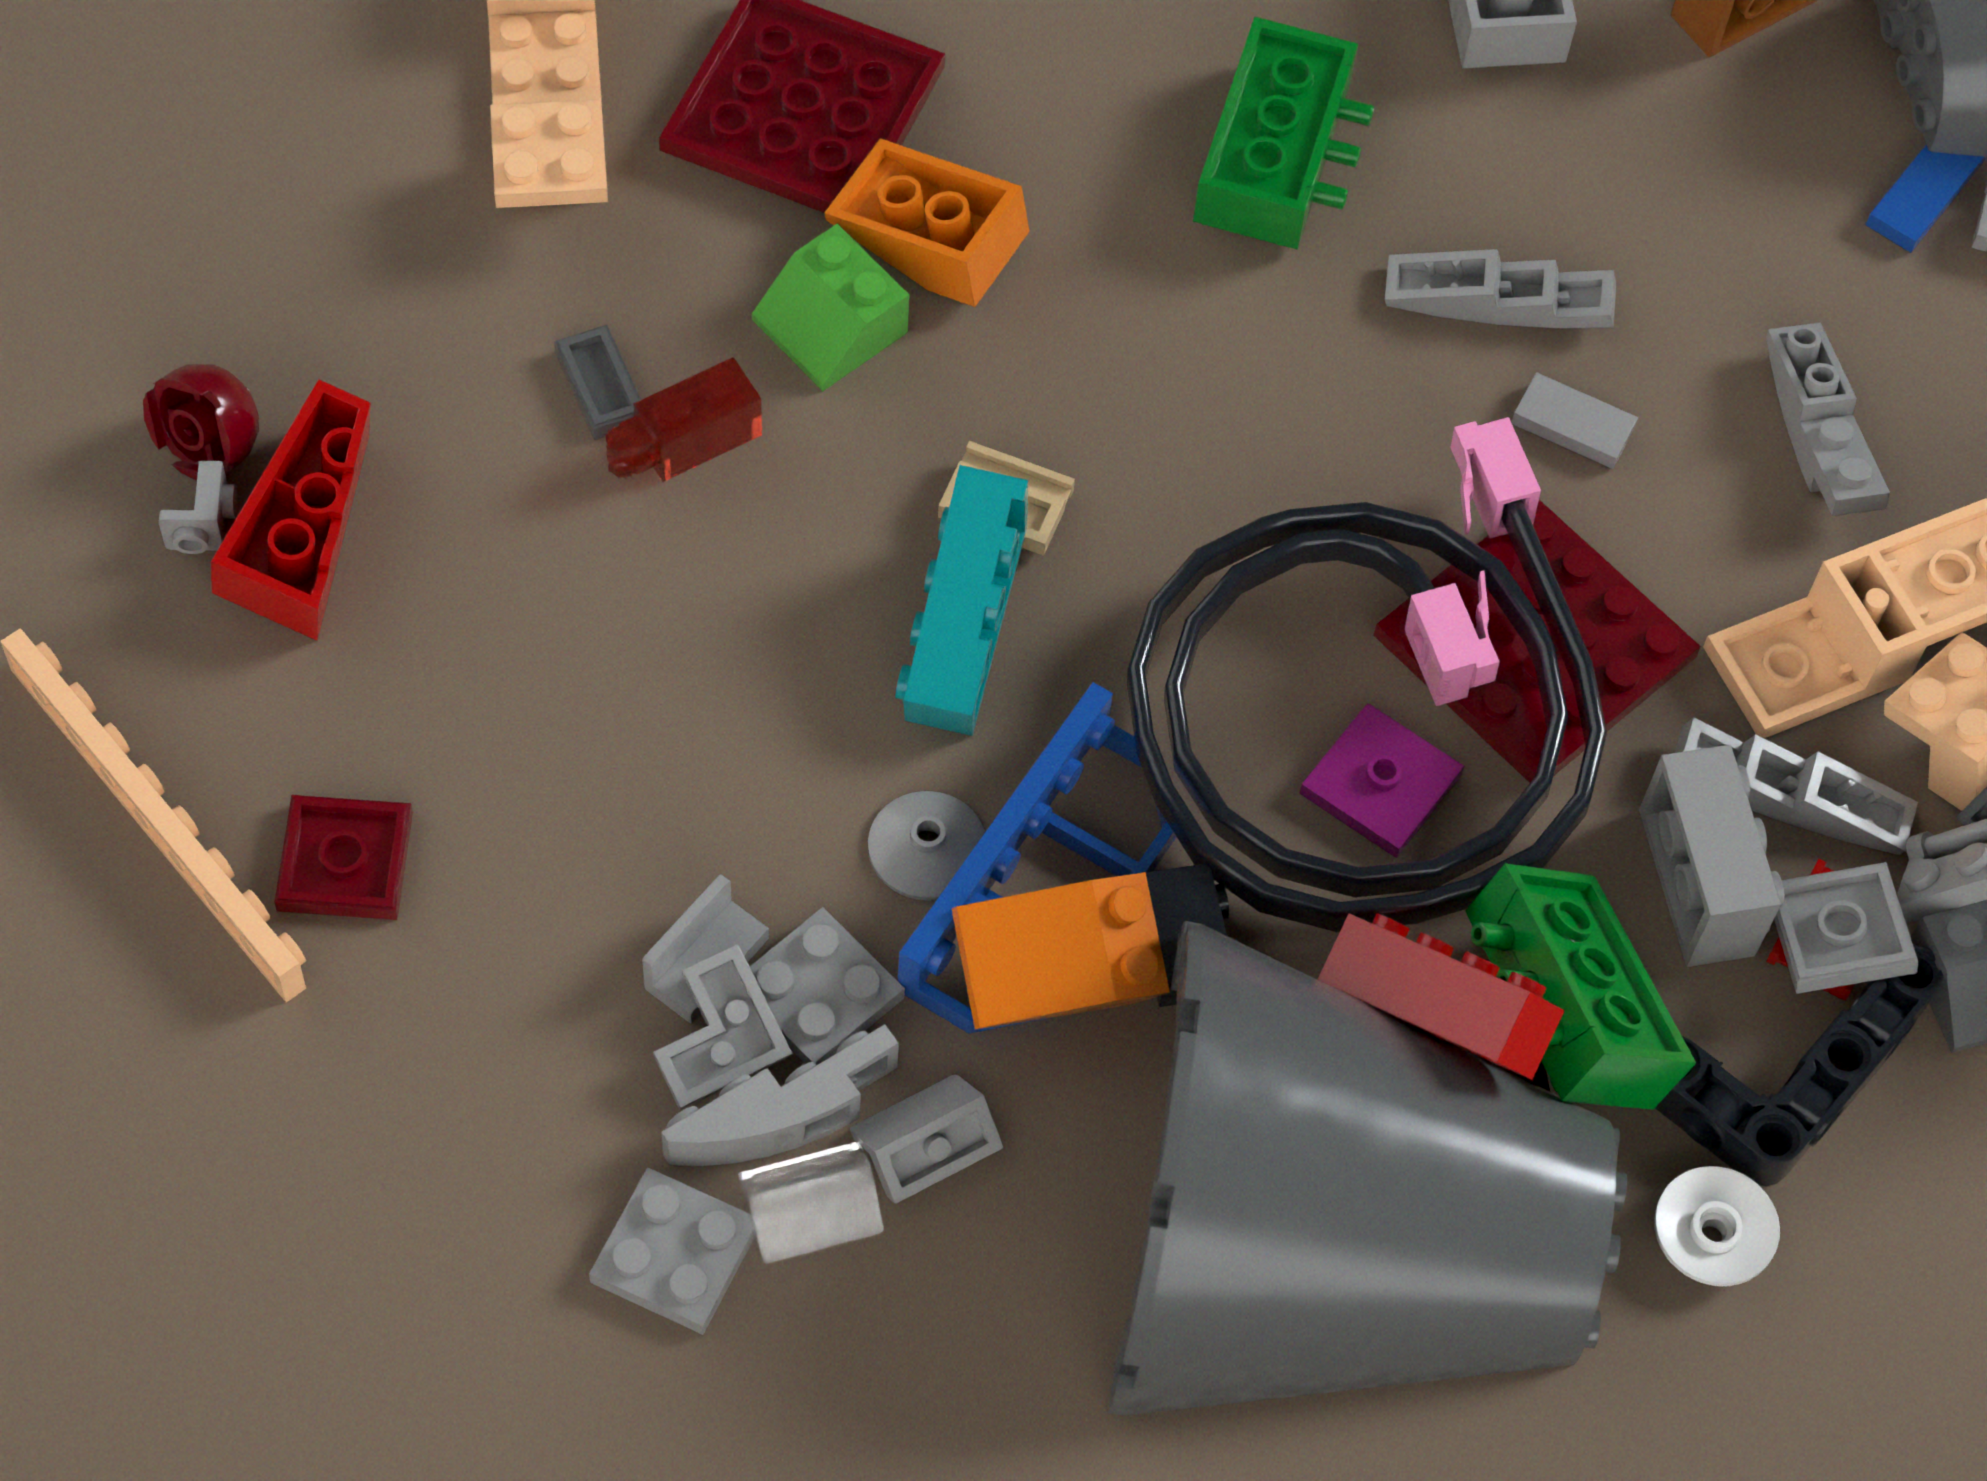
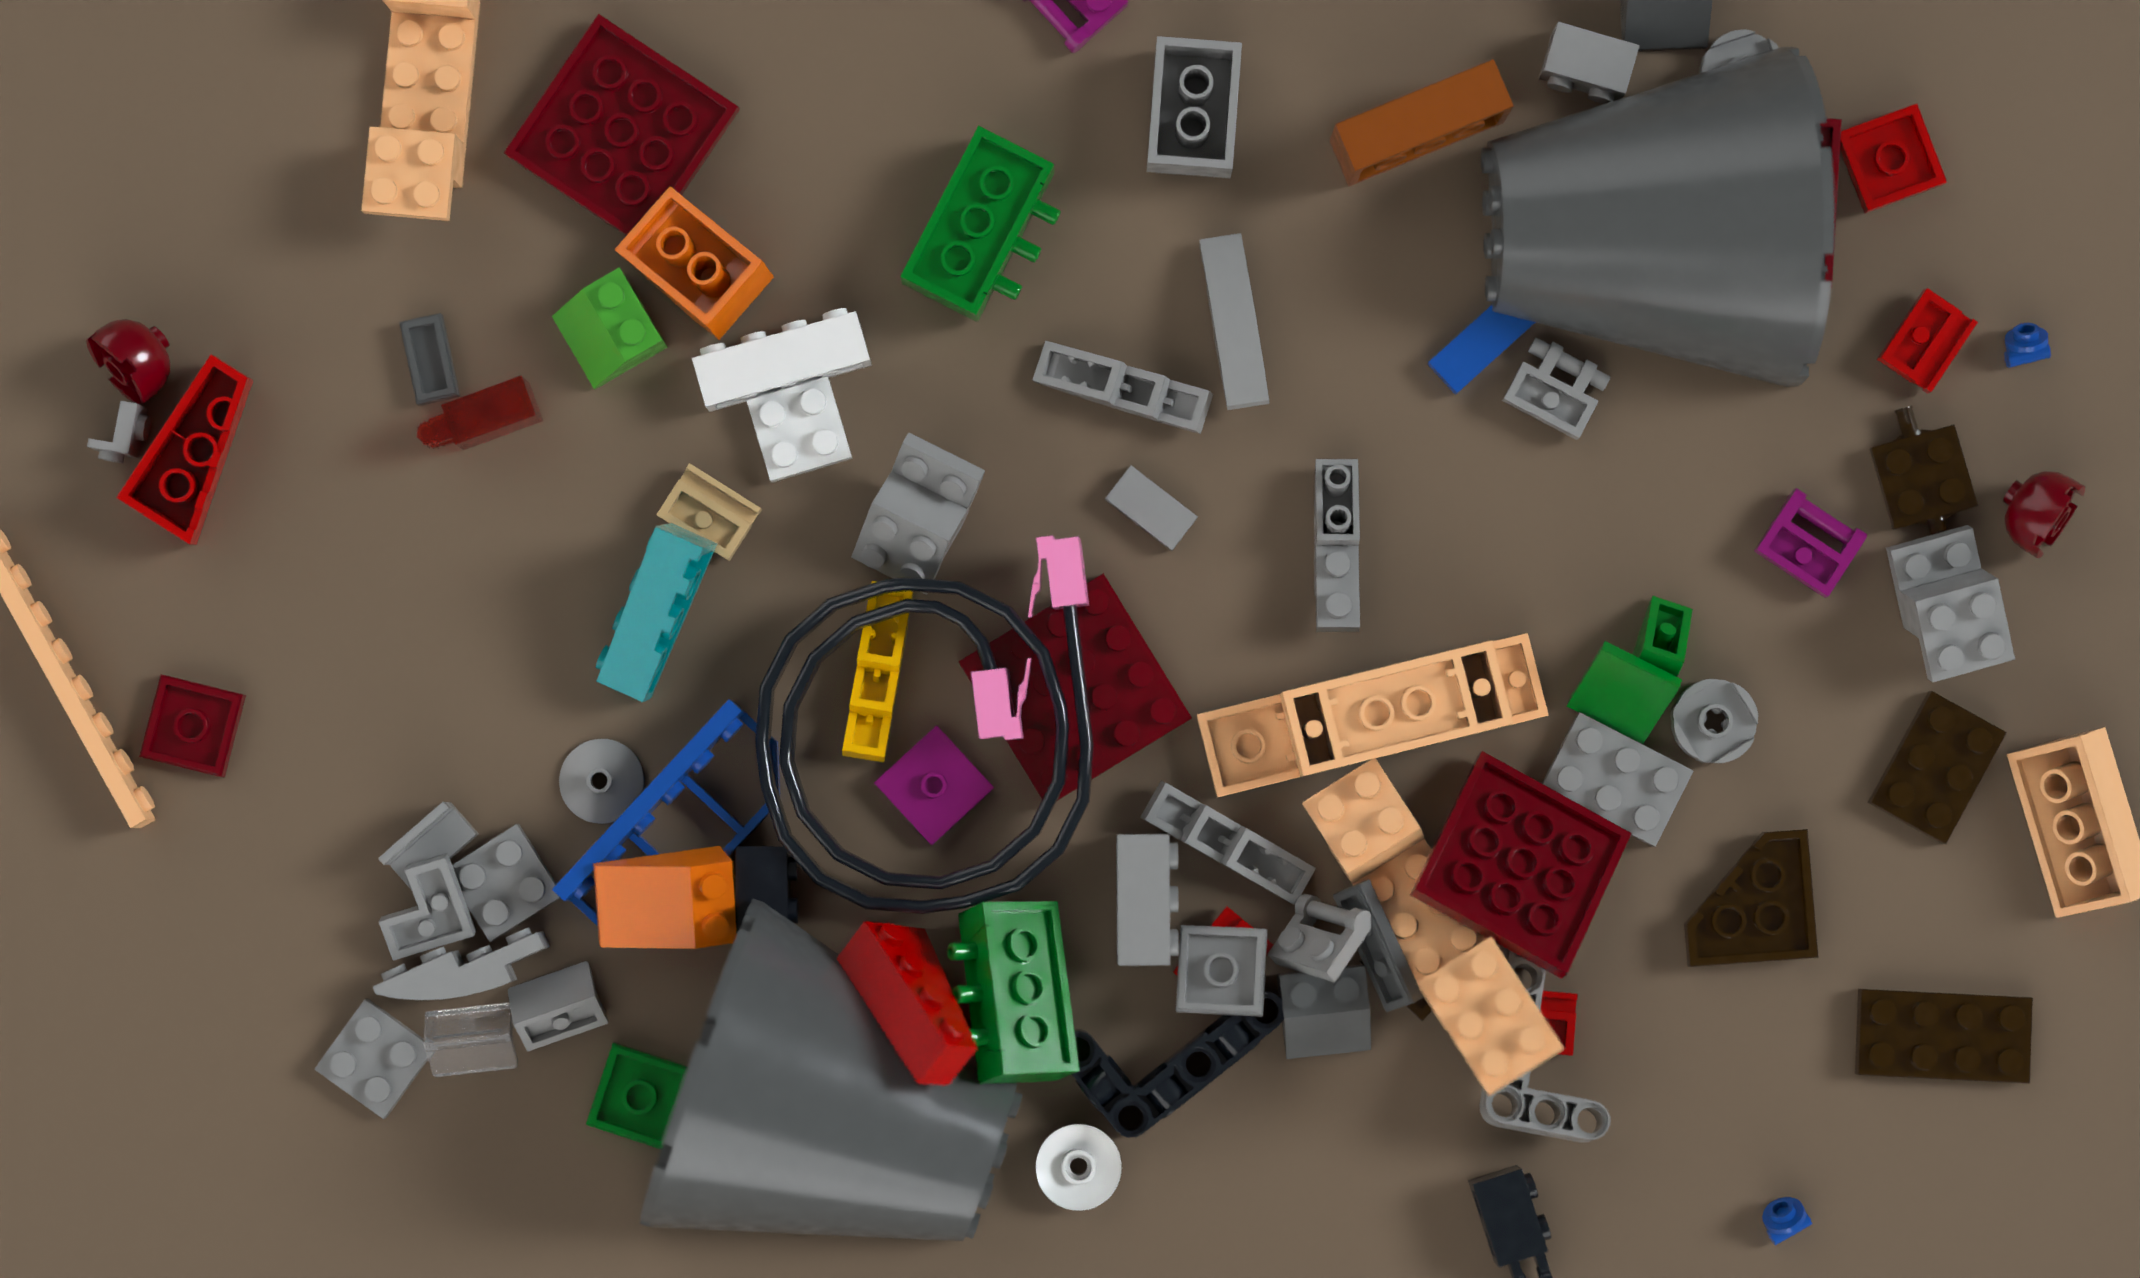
camera: 15 degrees right, 25 degrees up
(1062, 315) = (781, 360): none -> white brick
(1069, 1241) = (636, 1095): none -> green tile
(1100, 395) = (799, 429): none -> white plate
(1275, 668) = (876, 683): none -> yellow slope
(1282, 438) = (917, 511): none -> light grey bracket
(1623, 201) = (1234, 321): none -> light grey slope

